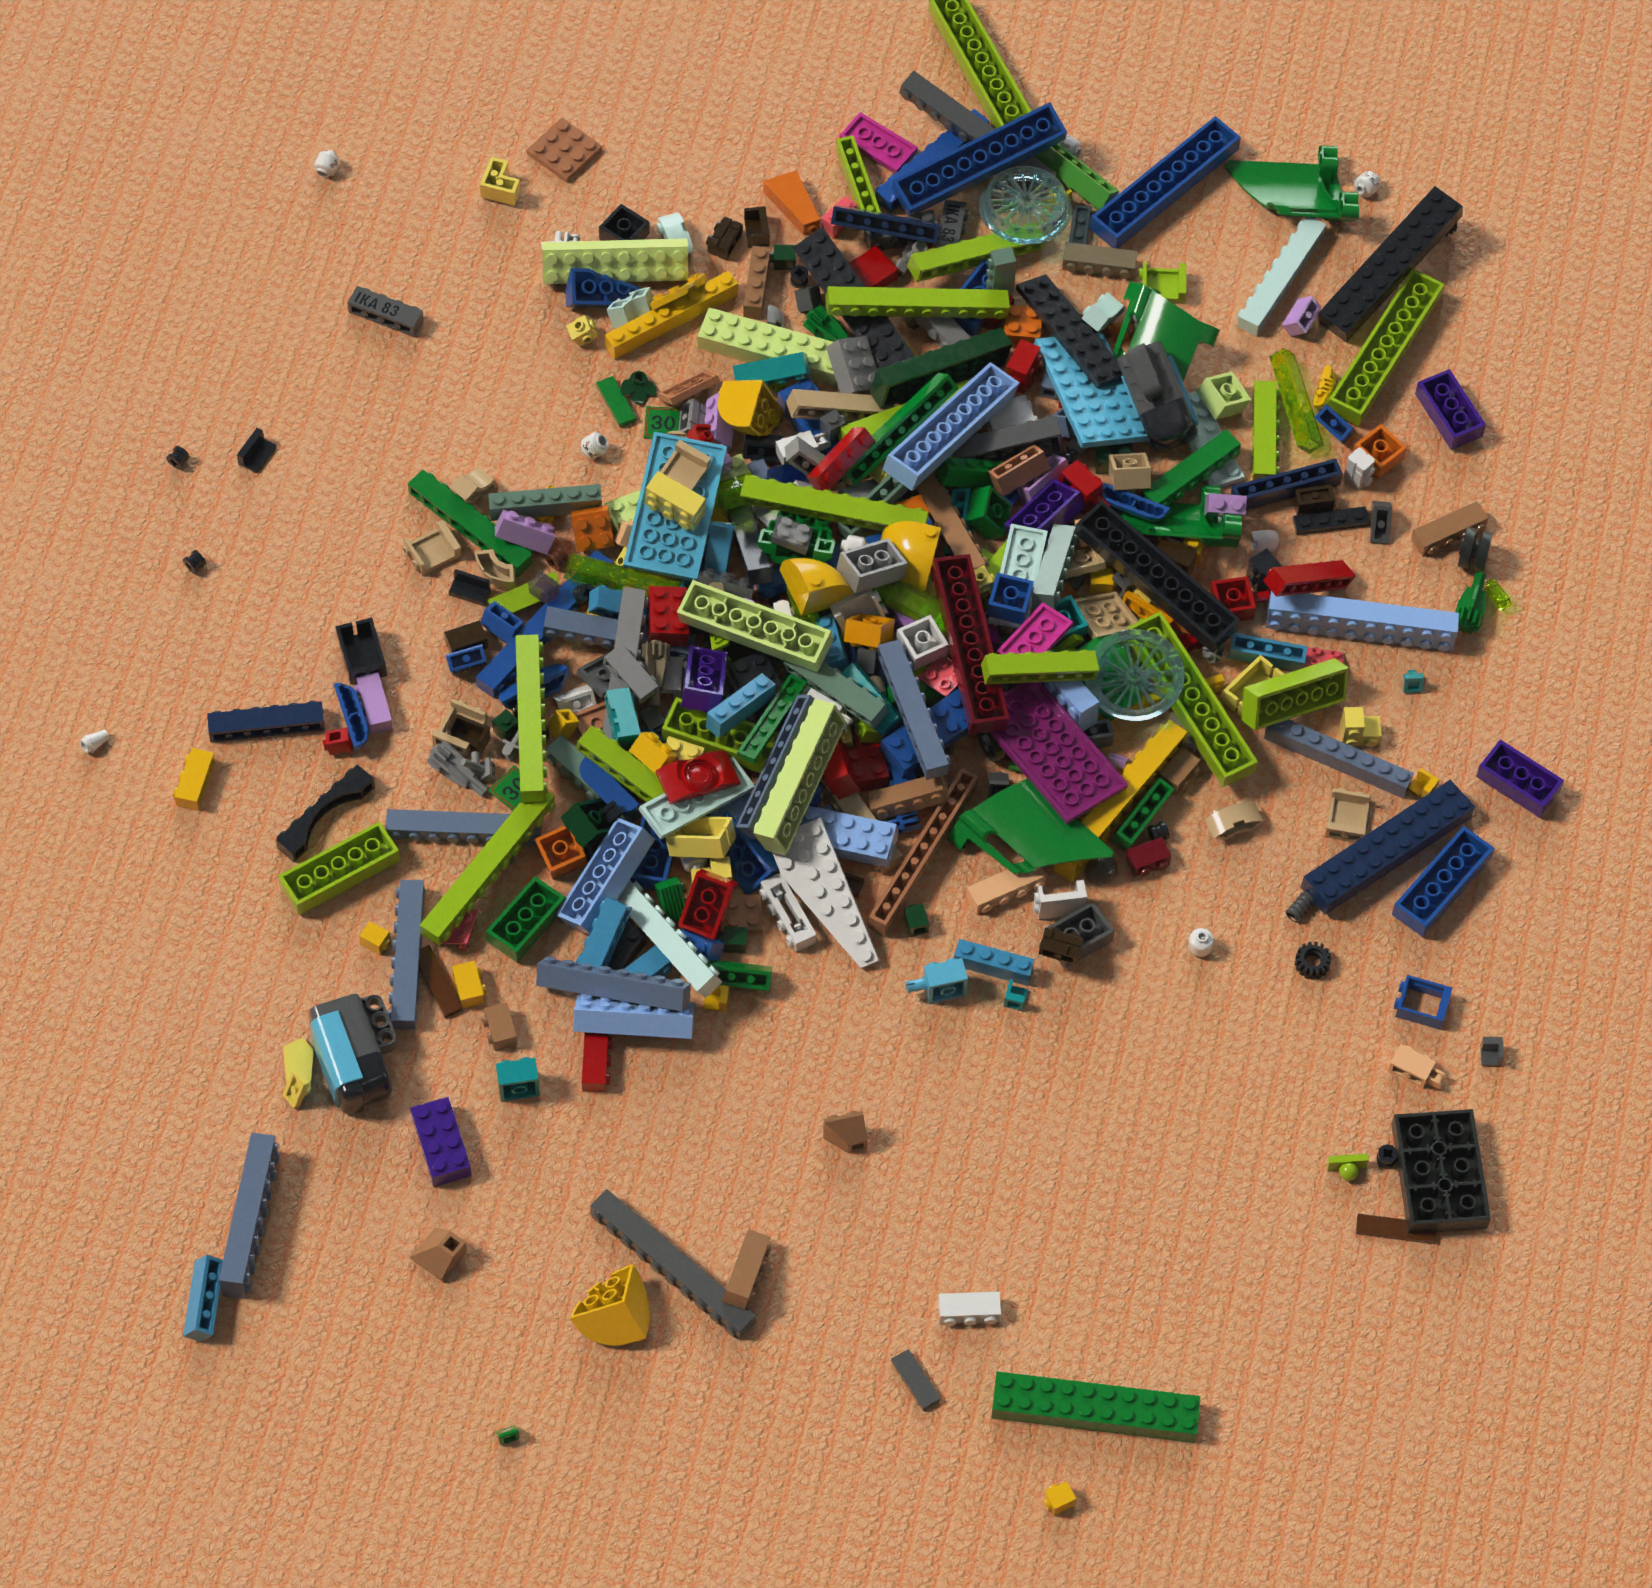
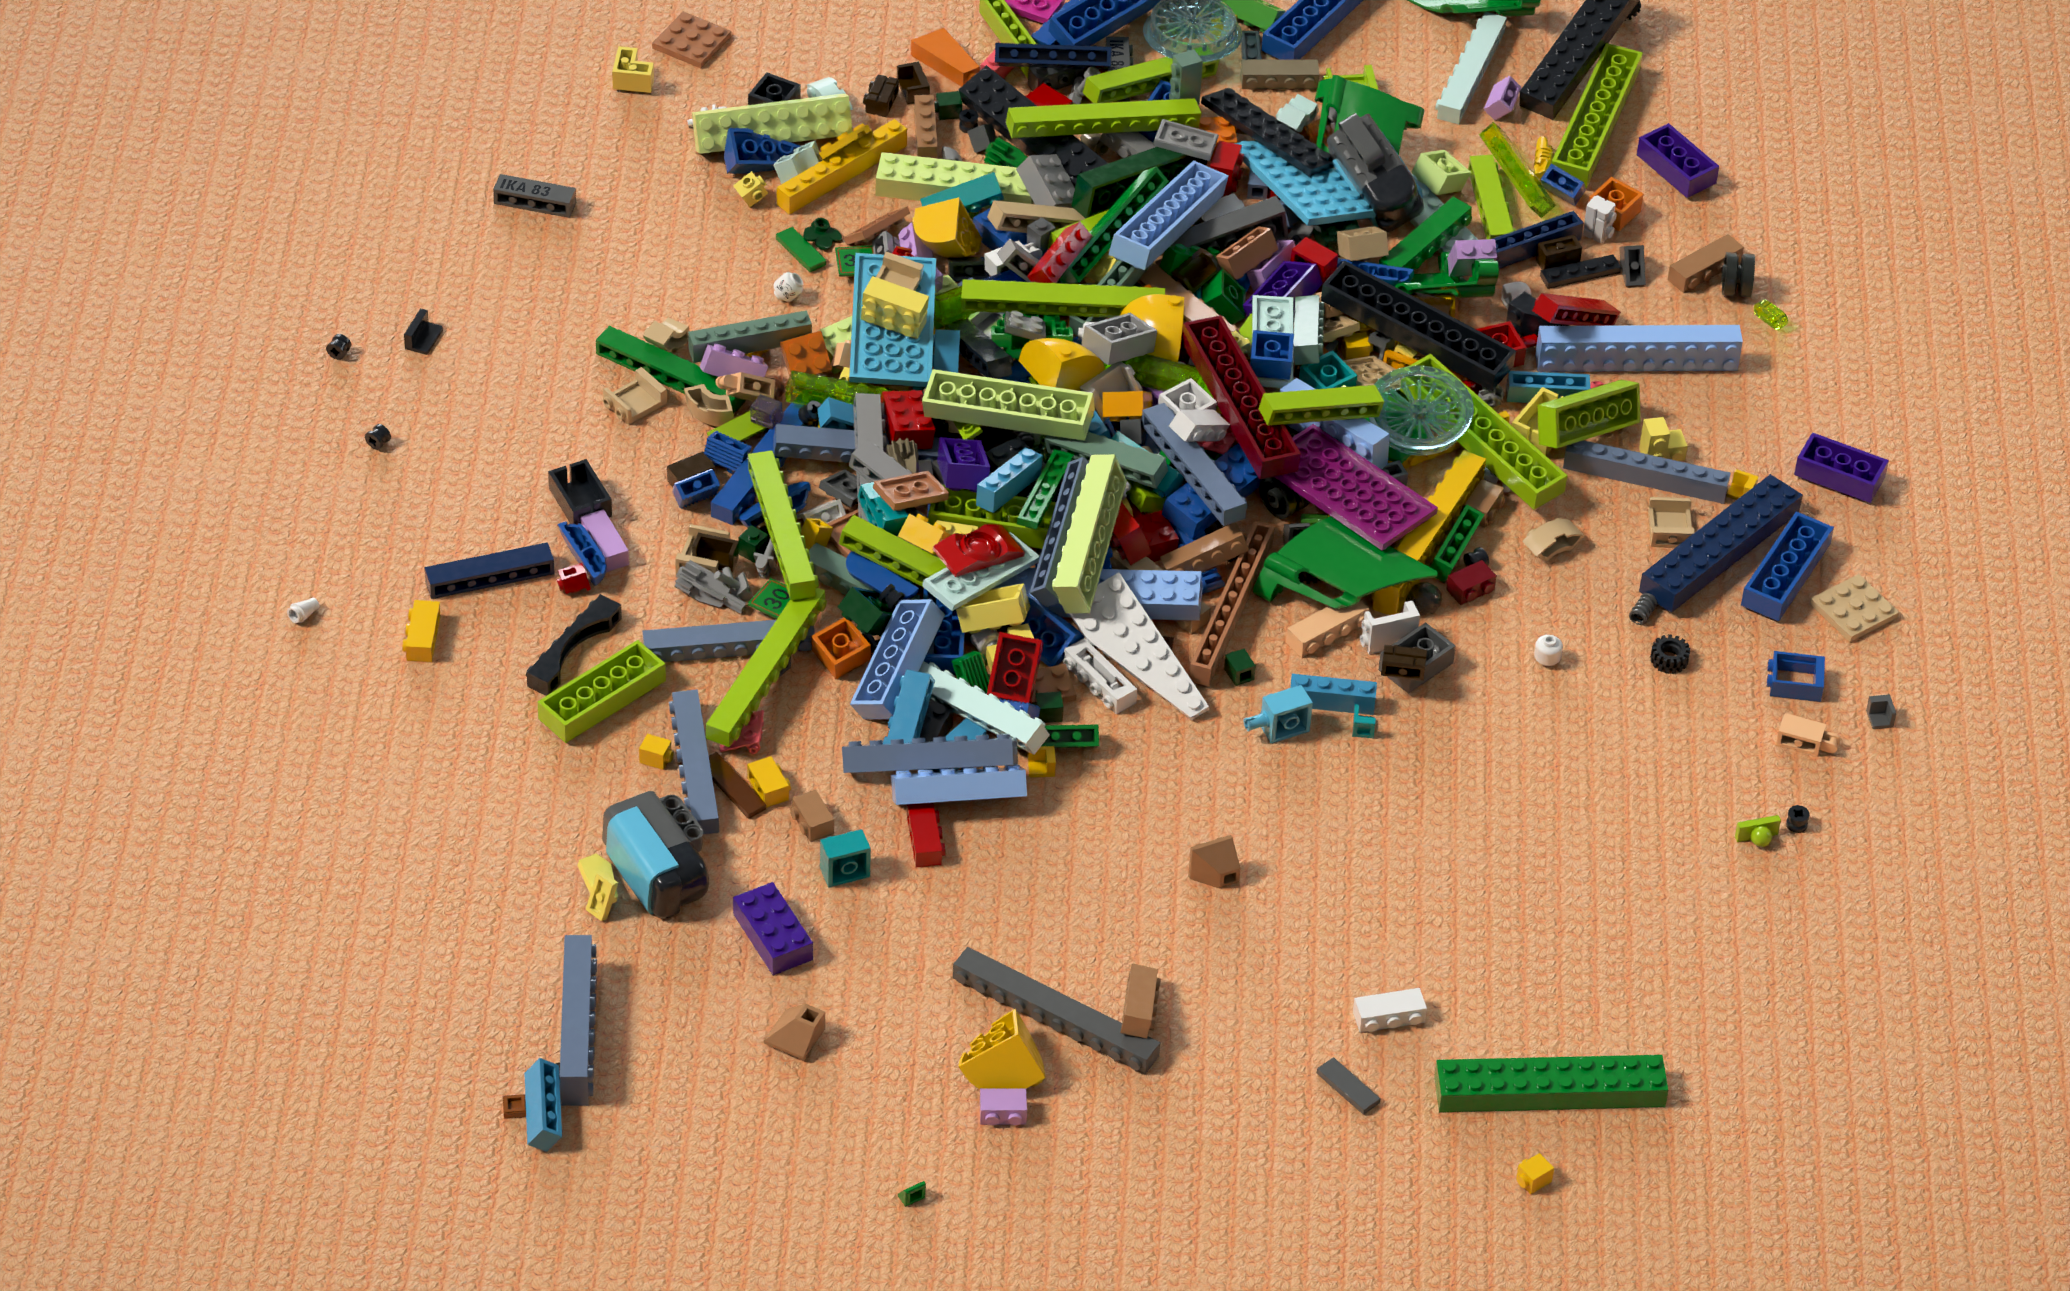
camera: 10 degrees left, 15 degrees down
(180, 1291) = (514, 1106): none -> dark orange tile
(327, 163) = (441, 75): white head -> none
(470, 587) = (684, 426): black panel -> none
(525, 919) = (817, 713): green brick -> none
(531, 558) = (746, 386): none -> light nougat brick
(604, 1358) = (1003, 1106): none -> lavender brick
(648, 706) = (911, 490): none -> nougat plate
(925, 671) = (1199, 425): none -> white brick
(966, 486) = (1196, 270): none -> dark brown panel
(988, 336) = (1185, 140): none -> light grey tile
(1038, 632) = (1312, 374): dark pink plate -> none
(1390, 1228) = (1825, 884): reddish brown tile -> none
(1413, 682) = (1705, 399): teal tile -> none
(1440, 1171) = (1859, 823): pearl dark grey brick -> none
(1472, 605) = (1750, 324): green piece -> none
(1496, 932) = (1854, 608): none -> tan plate

